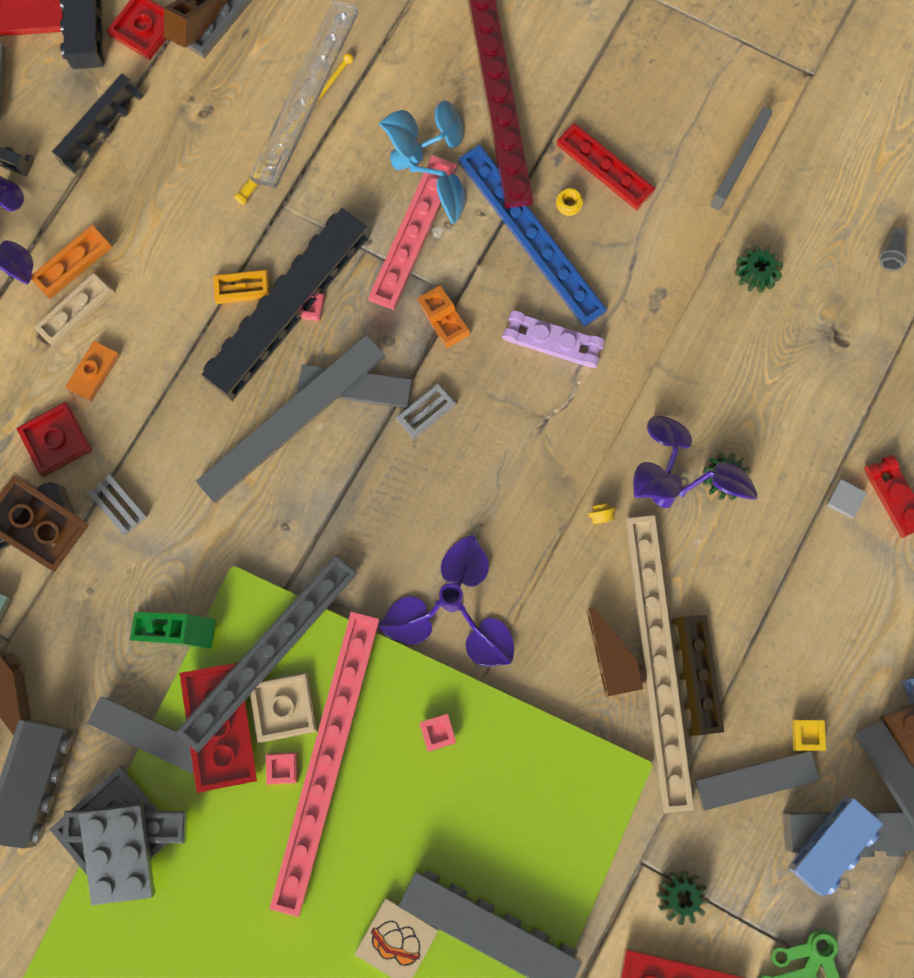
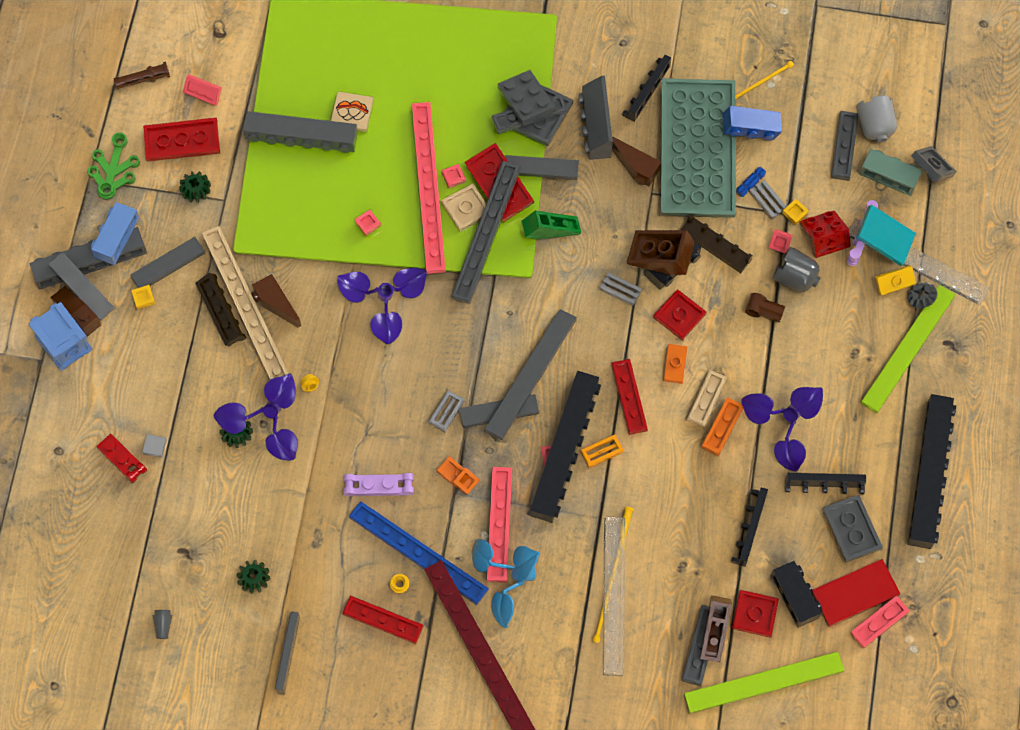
camera: 155 degrees right, 10 degrees down
(173, 348) = (629, 396): none -> red tile

